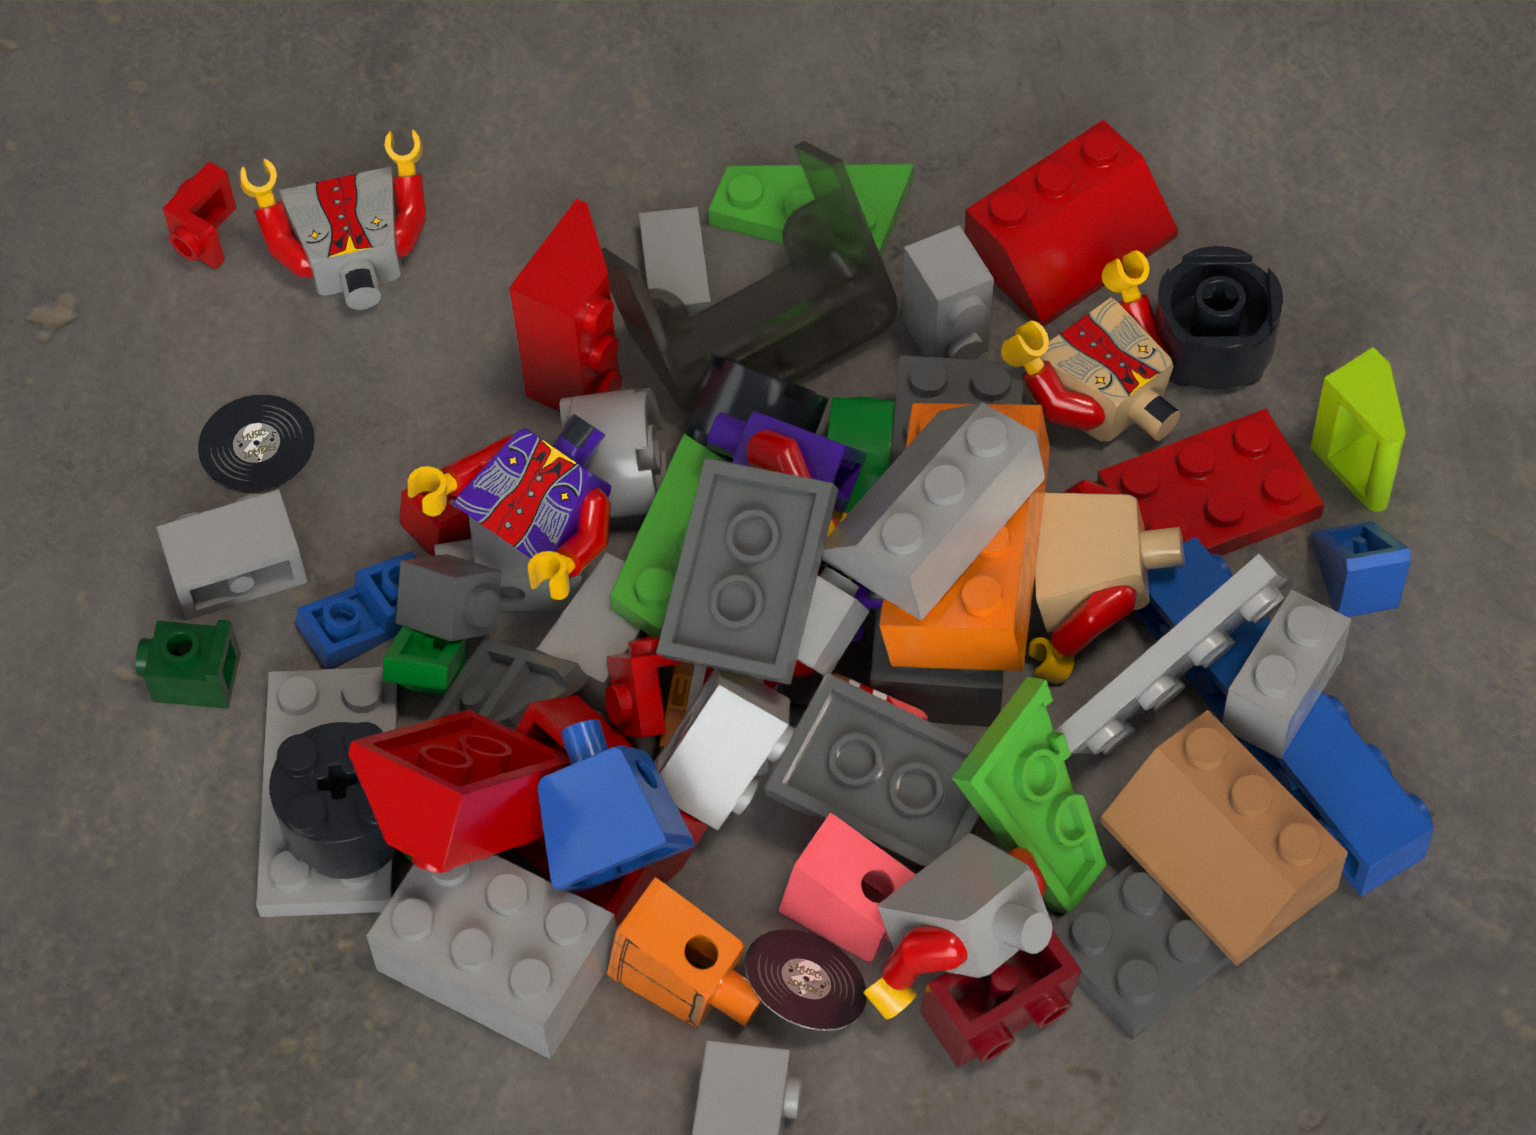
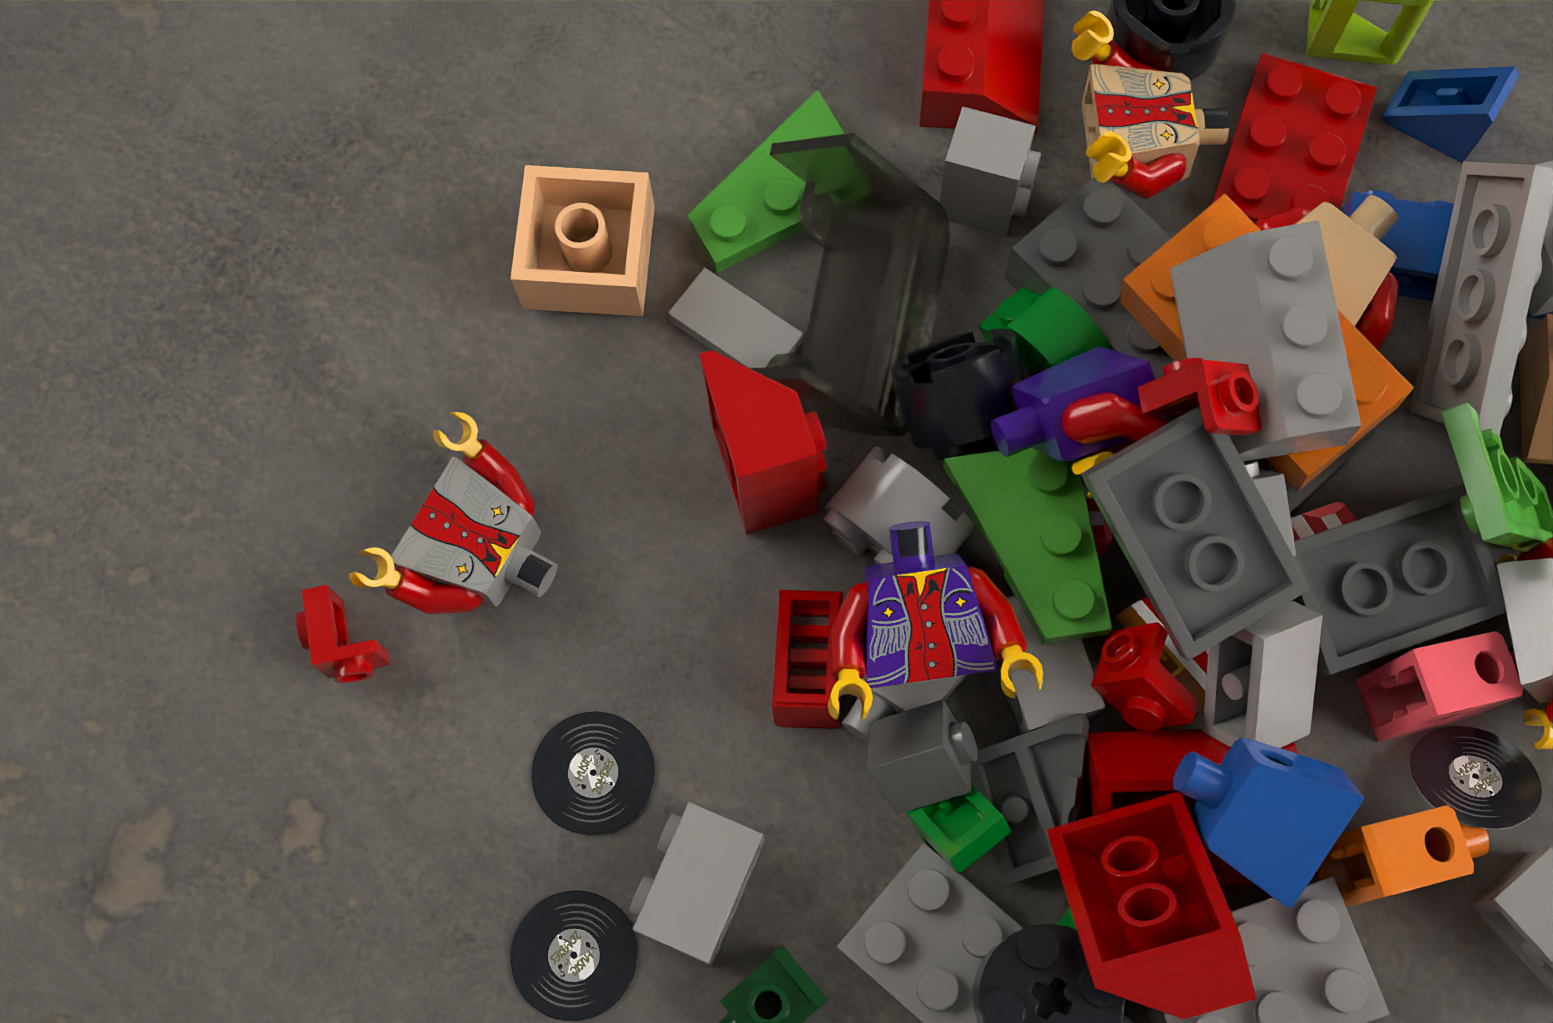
camera: 45 degrees left, 15 degrees up
(113, 533) = (574, 955): none -> black sticker
(354, 618) = (842, 822): blue slope -> none
(633, 117) = (583, 240): none -> light nougat brick
(844, 485) = (1221, 389): none -> red bracket

